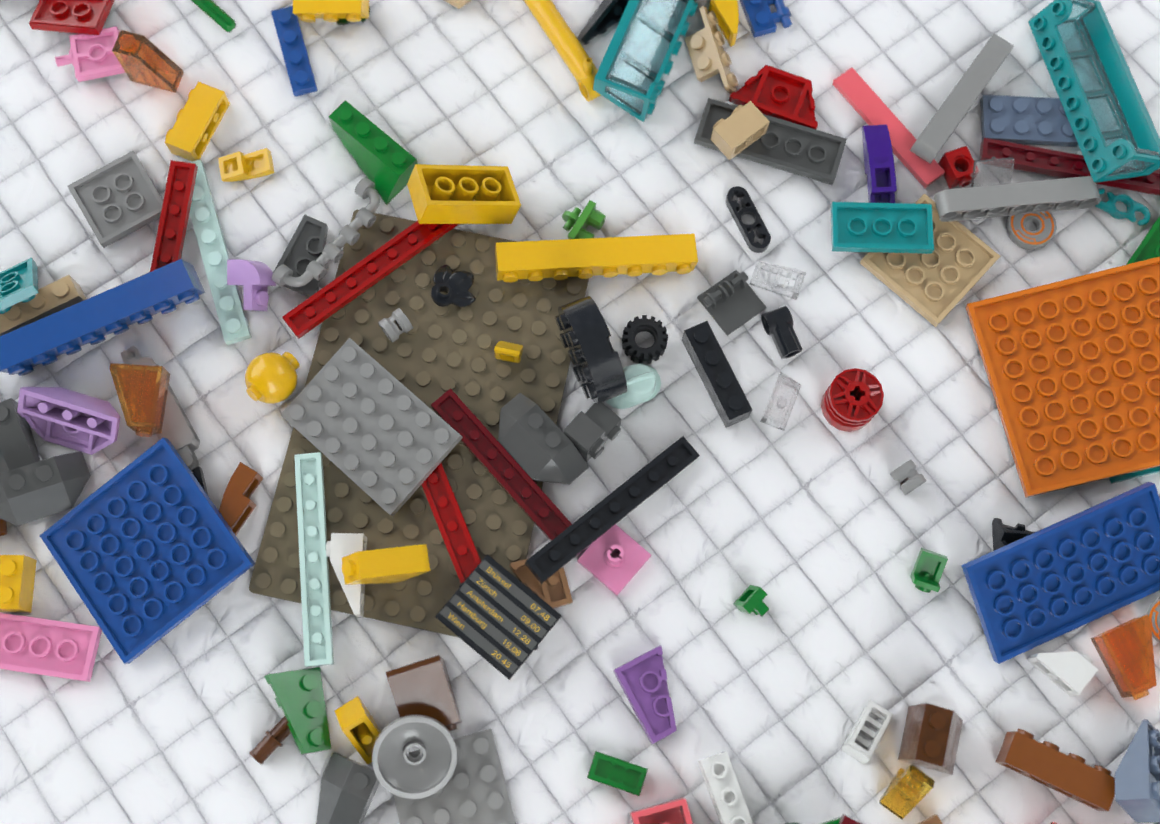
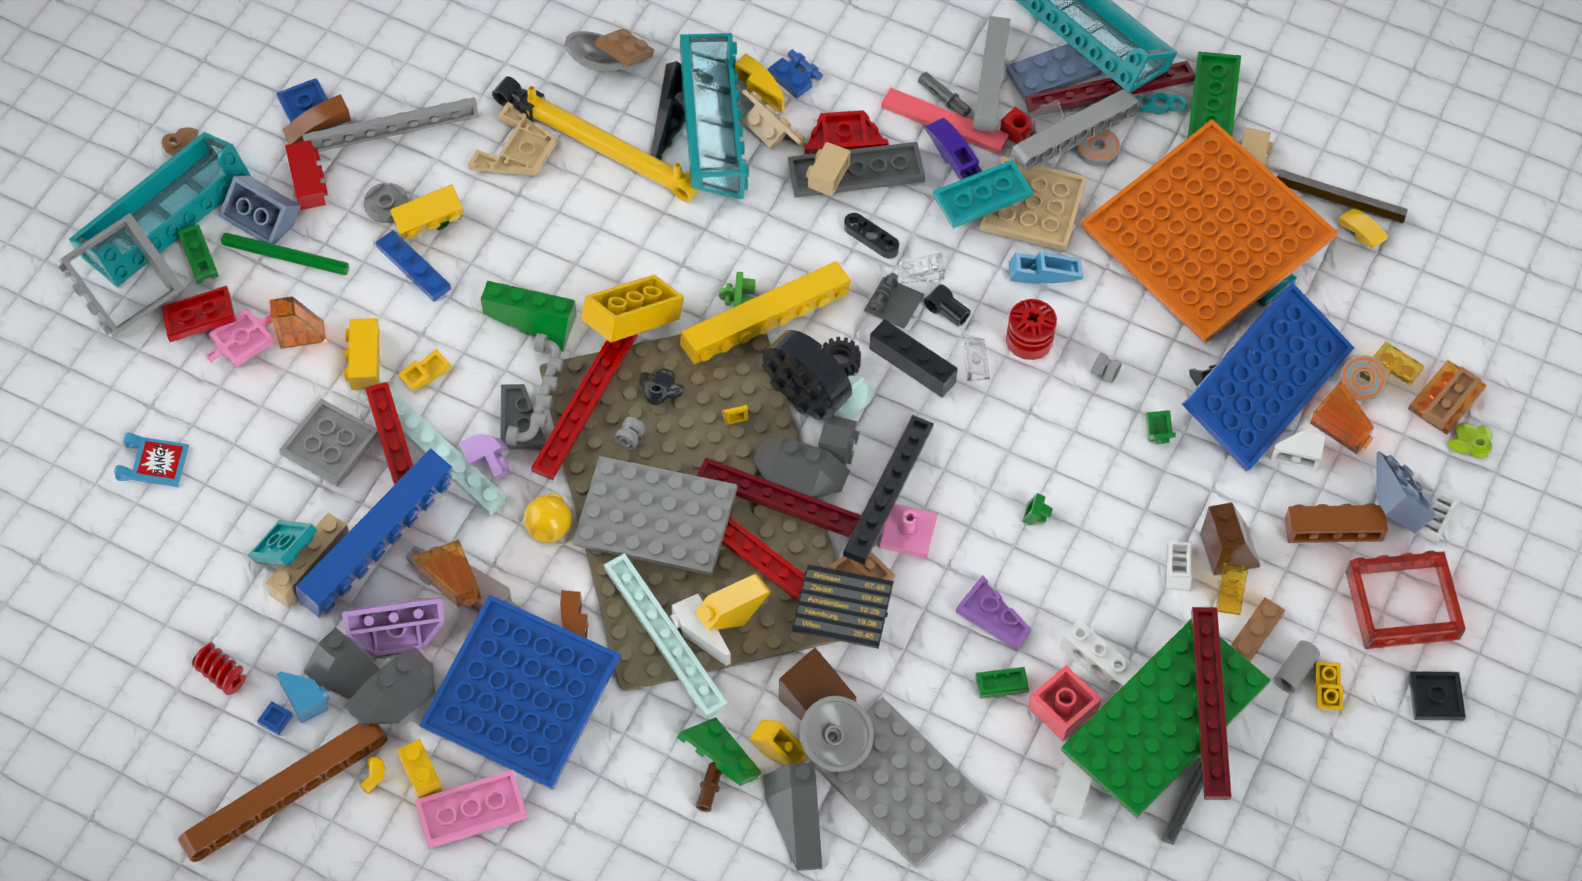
camera: 25 degrees left, 15 degrees down
(902, 98) = (939, 90): none -> dark grey axle
(903, 337) = (1044, 268): none -> dark azure slope

